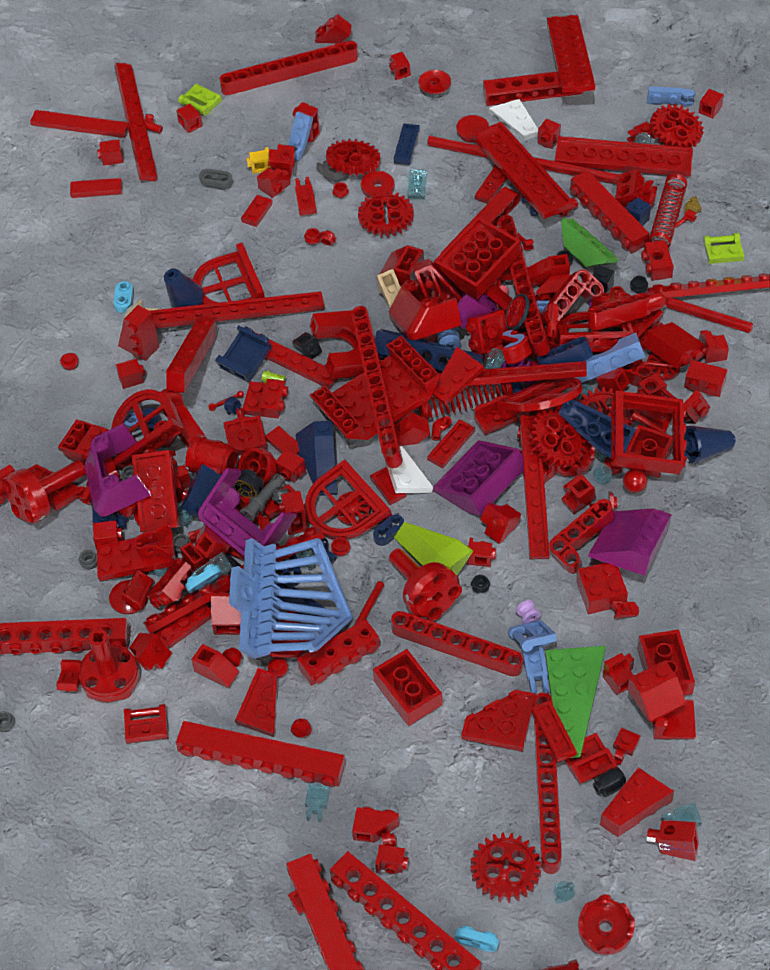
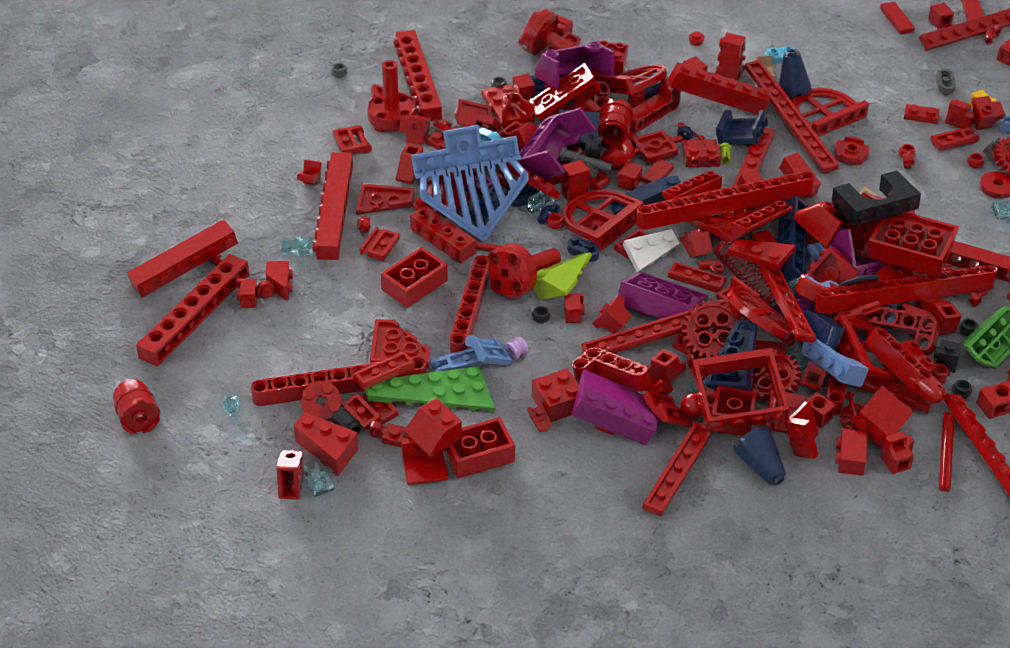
camera: 75 degrees right, 10 degrees down
(196, 774) = (310, 172): none -> red bracket
(302, 284) = (855, 156): none -> red plate
(308, 345) = (769, 167): black bracket -> none
(337, 716) = (379, 244): none -> red plate
(399, 213) = (959, 192): red gear -> none
(430, 244) = (861, 210): none -> black arch
(484, 941) = (179, 355): medium azure plate -> none
(502, 885) = (235, 363): red gear -> none
(585, 793) = (326, 390): none -> red plate
(608, 911) = (200, 425): red plate -> none
(618, 671) = (466, 411): red brick -> none
(640, 502) = (666, 409): none -> red slope
(706, 511) = (677, 469): none -> red plate

